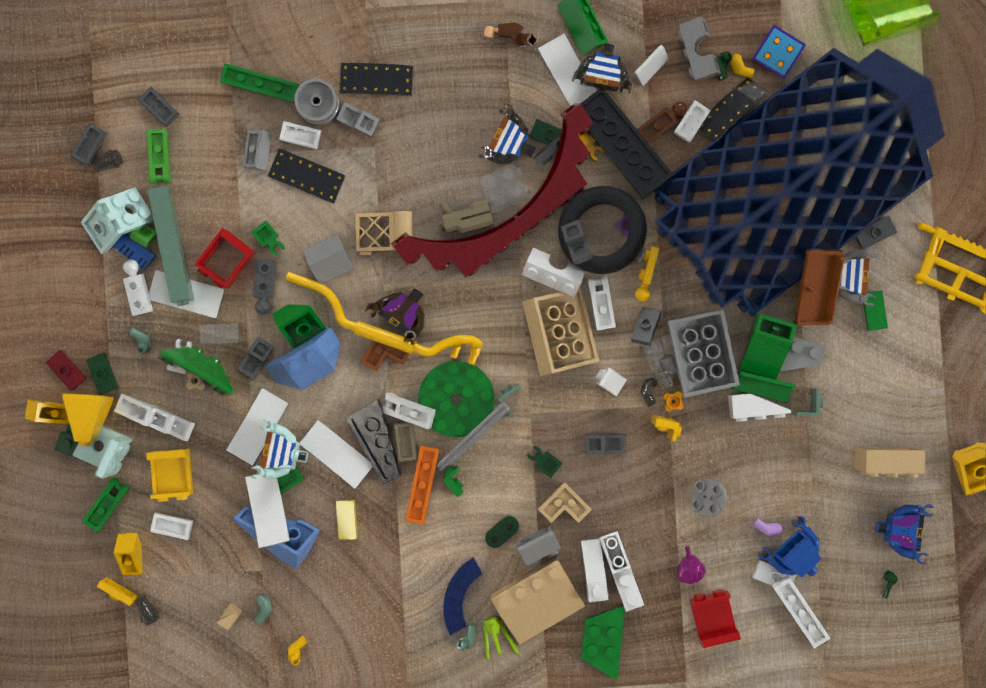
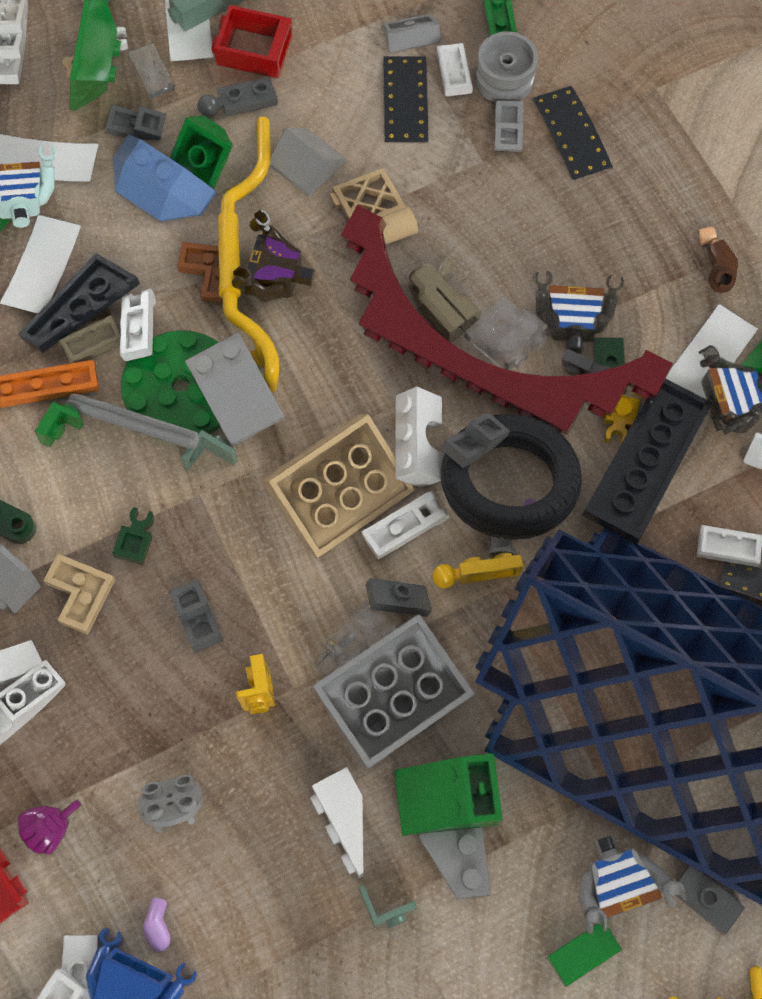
camera: 65 degrees right, 20 degrees down
(266, 236) = (302, 78): green plate -> none
(481, 369) = (235, 389): none -> light grey slope
(610, 380) = (293, 576): white slope -> none
(647, 389) = (301, 643): clear smoke arm -> none
(662, 122) = (705, 503): reddish brown plate -> none
(678, 401) = (292, 688): light orange plate -> none
(764, 387) = (382, 819): green panel -> none
(819, 287) = (577, 832): dark orange container -> none

